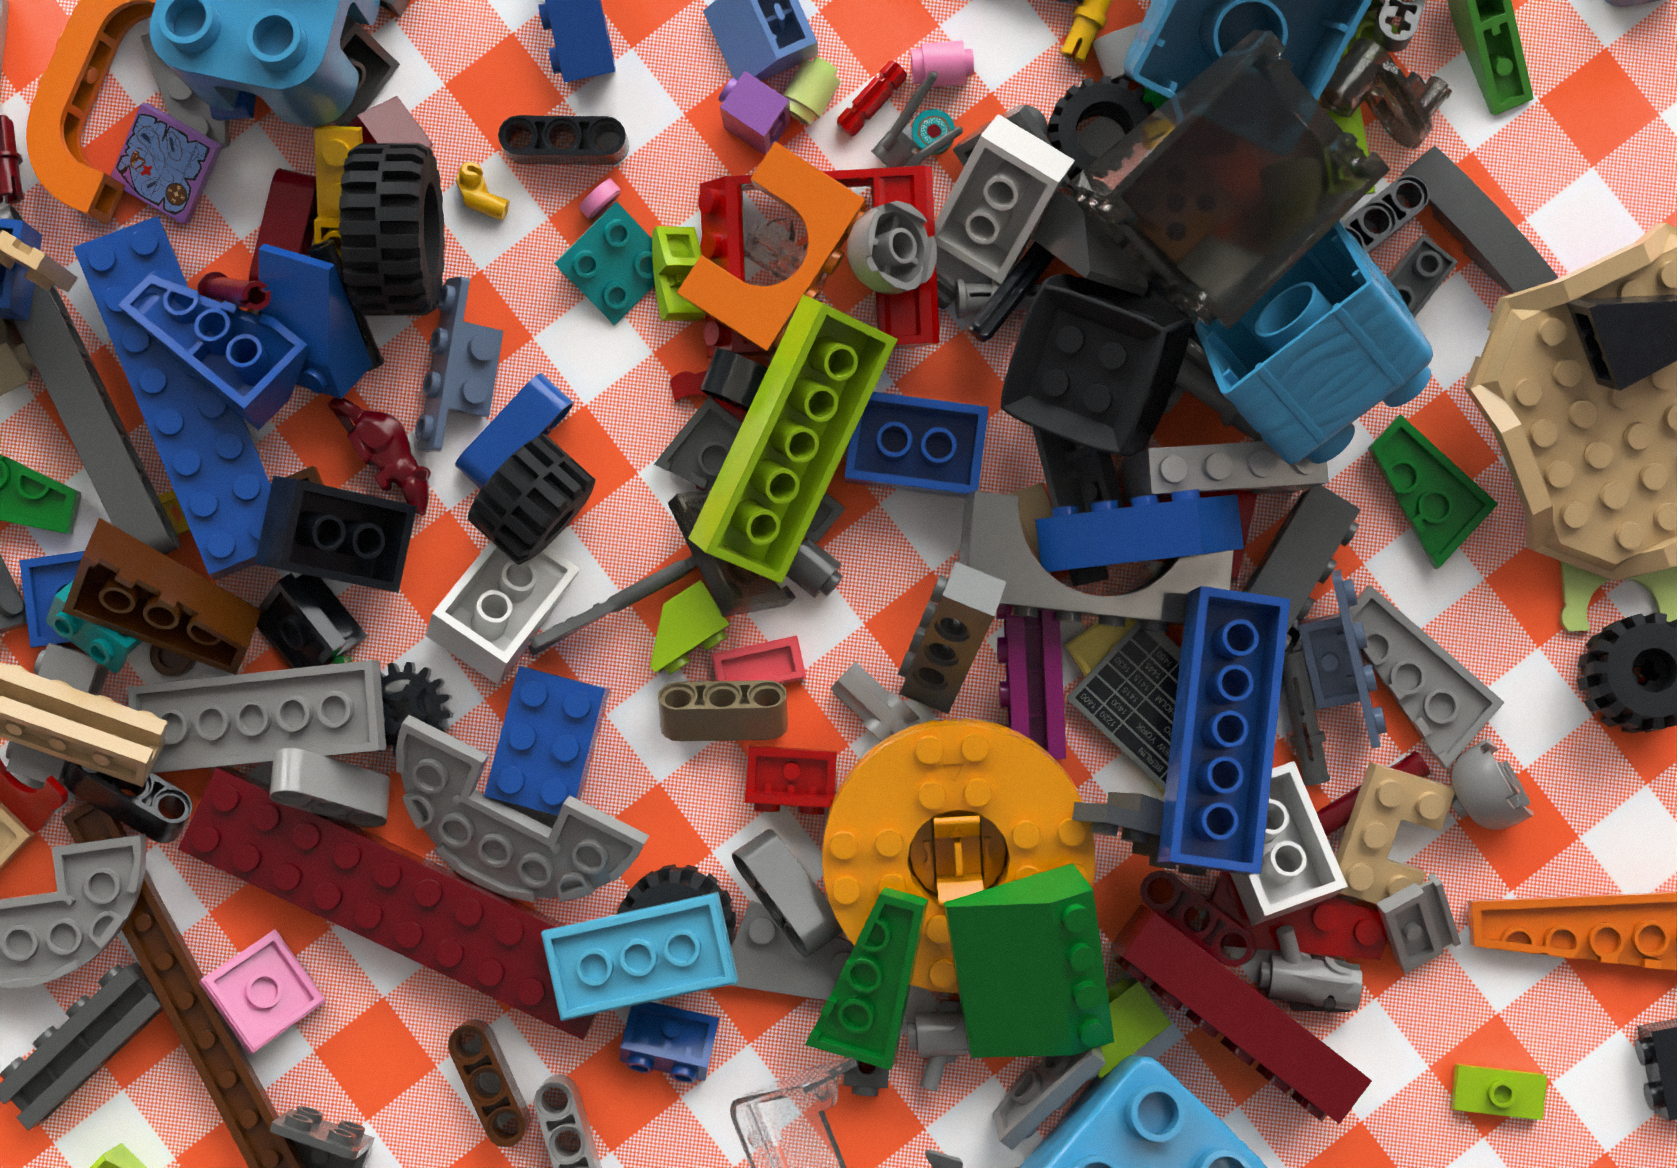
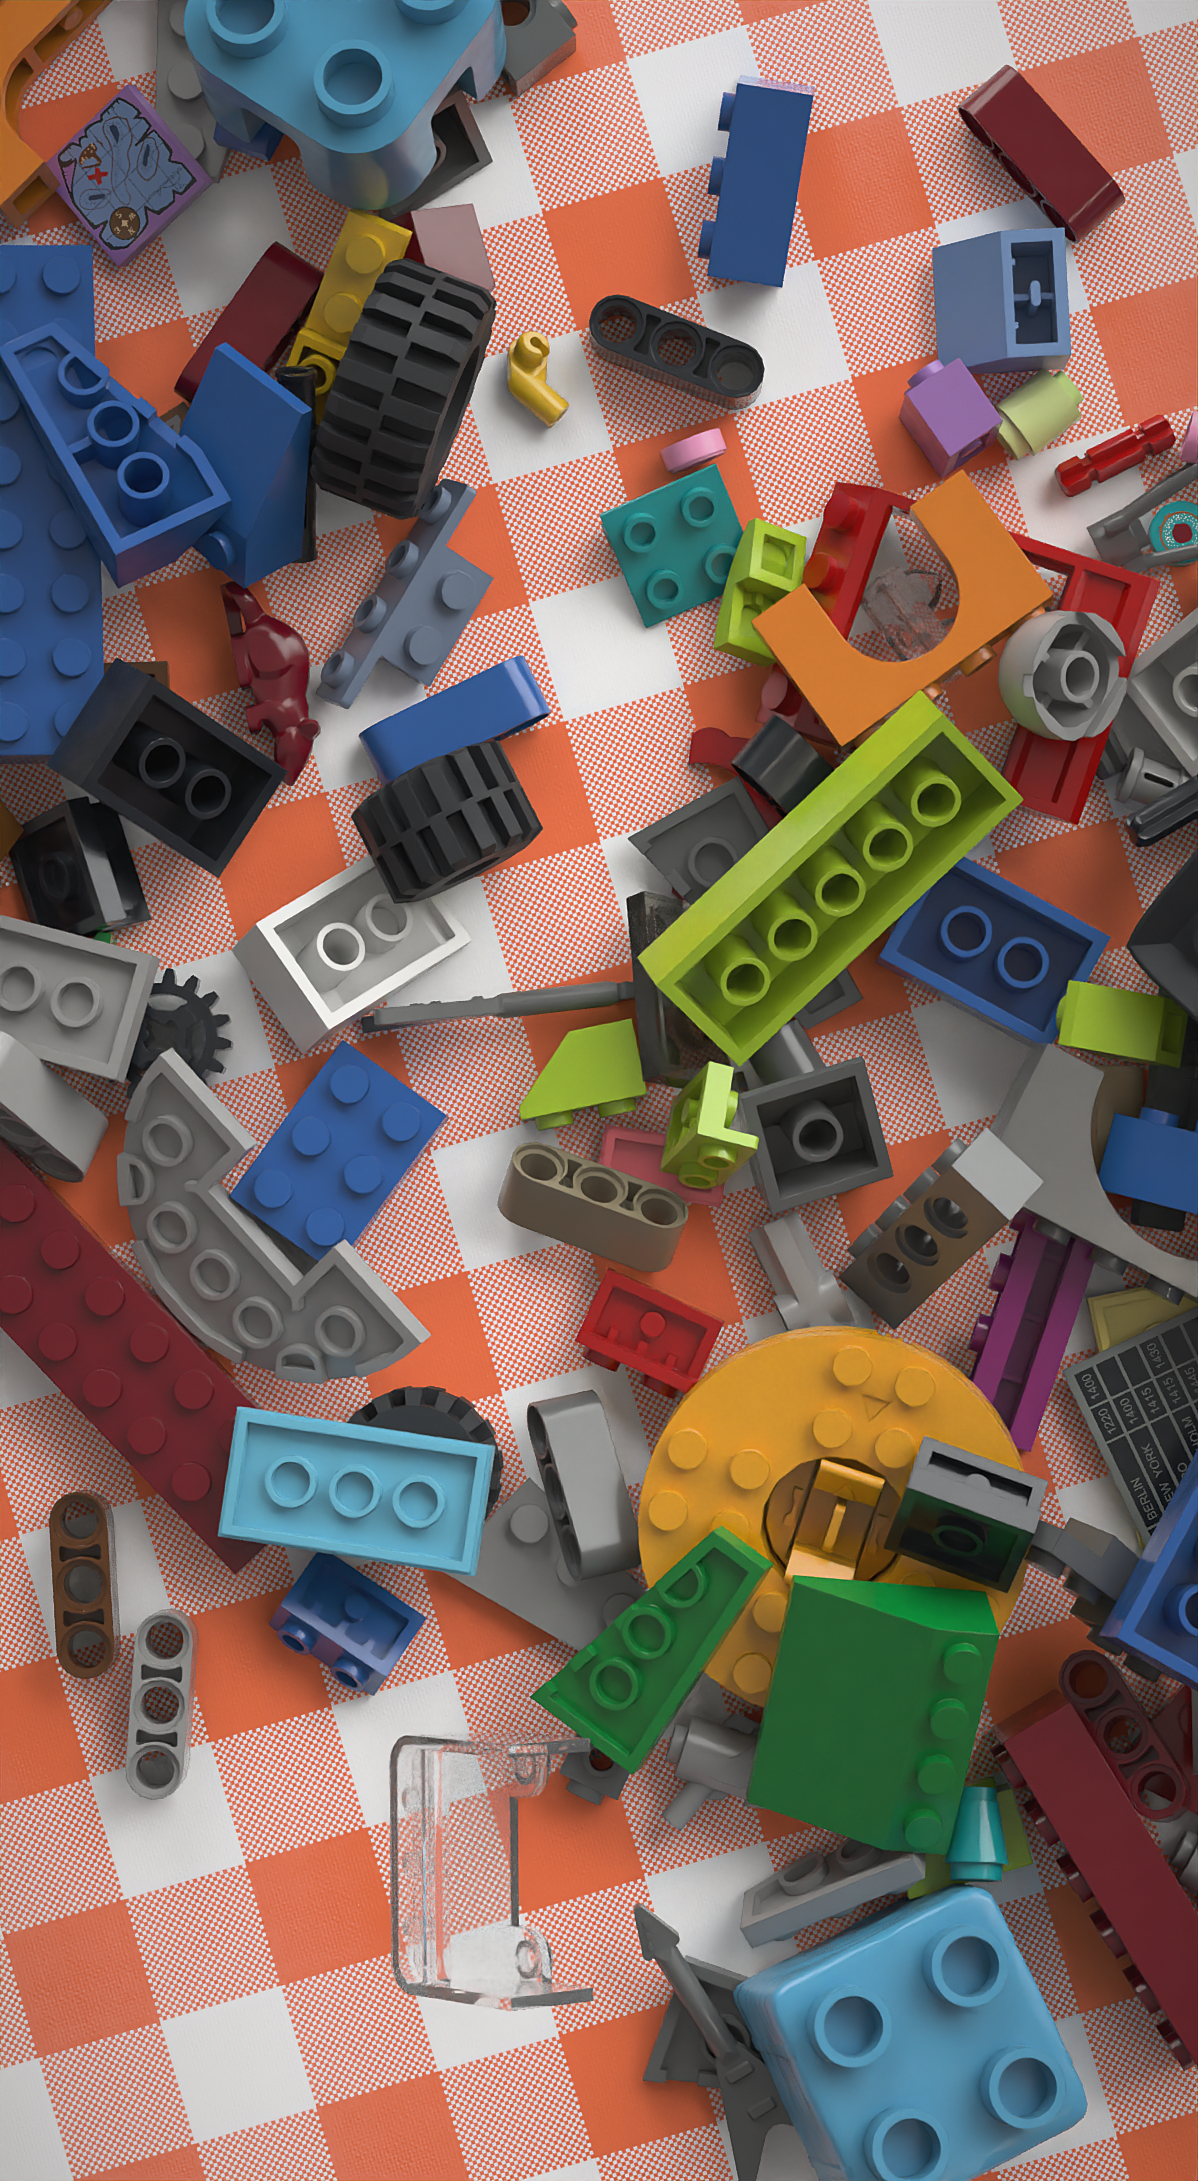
camera: 25 degrees right, 0 degrees up
(236, 291) = (162, 391): dark red pin -> none
(773, 640) = (698, 1133): none -> lime bracket
(847, 609) = (815, 1135): none -> dark grey slope
(1017, 460) = (1121, 1024): none -> lime slope
(1041, 818) = (966, 1515): none -> black bracket
(1129, 1022) = (978, 1839): none -> teal cone

